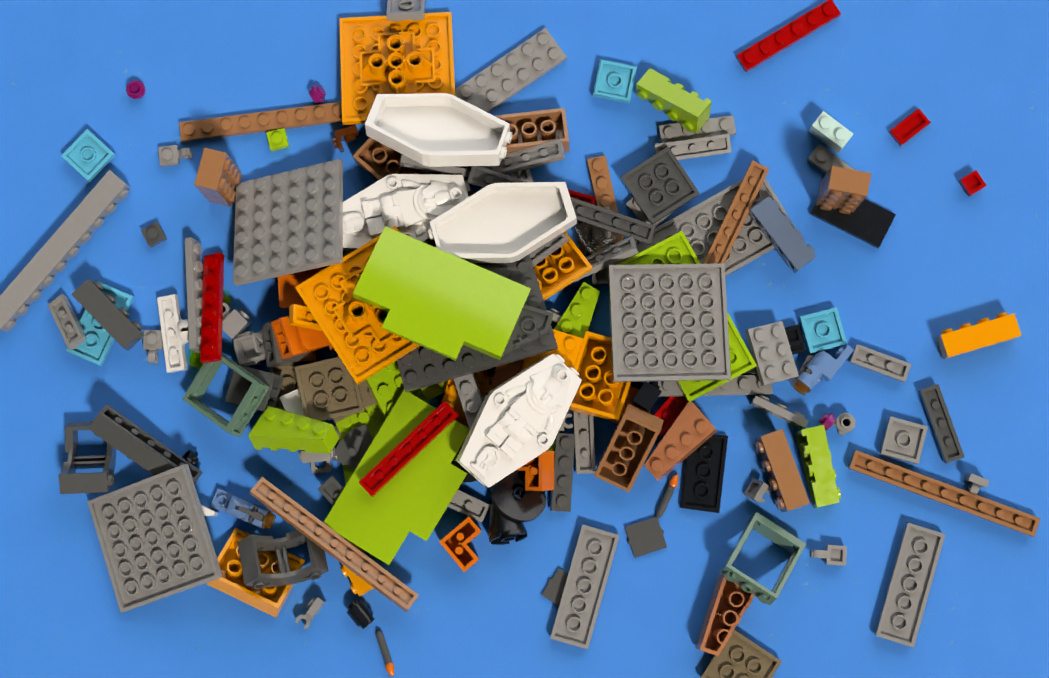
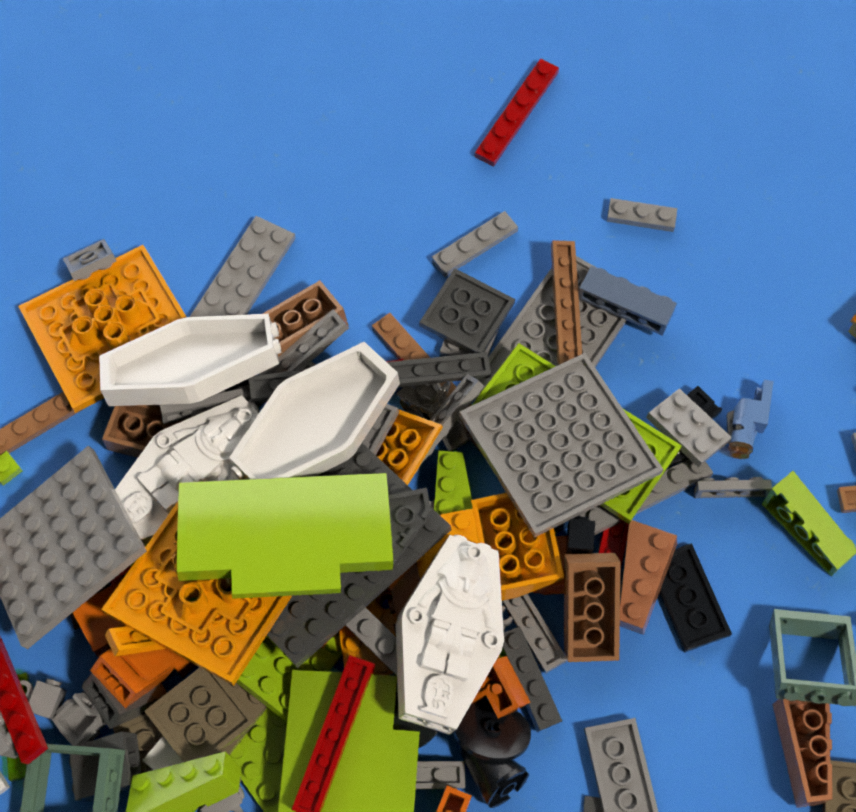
camera: 30 degrees left, 15 degrees down
(317, 94) = (29, 396): magenta plate -> none
(346, 134) = (83, 424): reddish brown bracket -> none
(353, 446) = (263, 776): dark grey shield -> none
(614, 81) = (360, 234): medium azure plate -> none
(645, 537) = (665, 706): dark grey piece -> none
(667, 496) = (661, 628): dark grey piece -> none
(674, 100) = (435, 220): lime wedge -> none
(697, 146) = (486, 256): light grey plate -> none
(756, 490) = (759, 586): light grey tile -> none
(781, 470) = (775, 548): medium nougat brick -> none
(823, 330) = (727, 380): medium azure plate -> none
(827, 420) = (787, 468): magenta plate -> none
(830, 132) = (616, 180): light aqua brick -> none
(842, 429) = (806, 470): light grey brick -> none
(843, 189) = (666, 218): medium nougat brick -> none
(866, 223) = (686, 251): black tile -> none
(880, 363) = (808, 384): light grey plate -> none
(909, 127) = (692, 142): red tile -> none
(972, 183) = (789, 164): red plate -> none

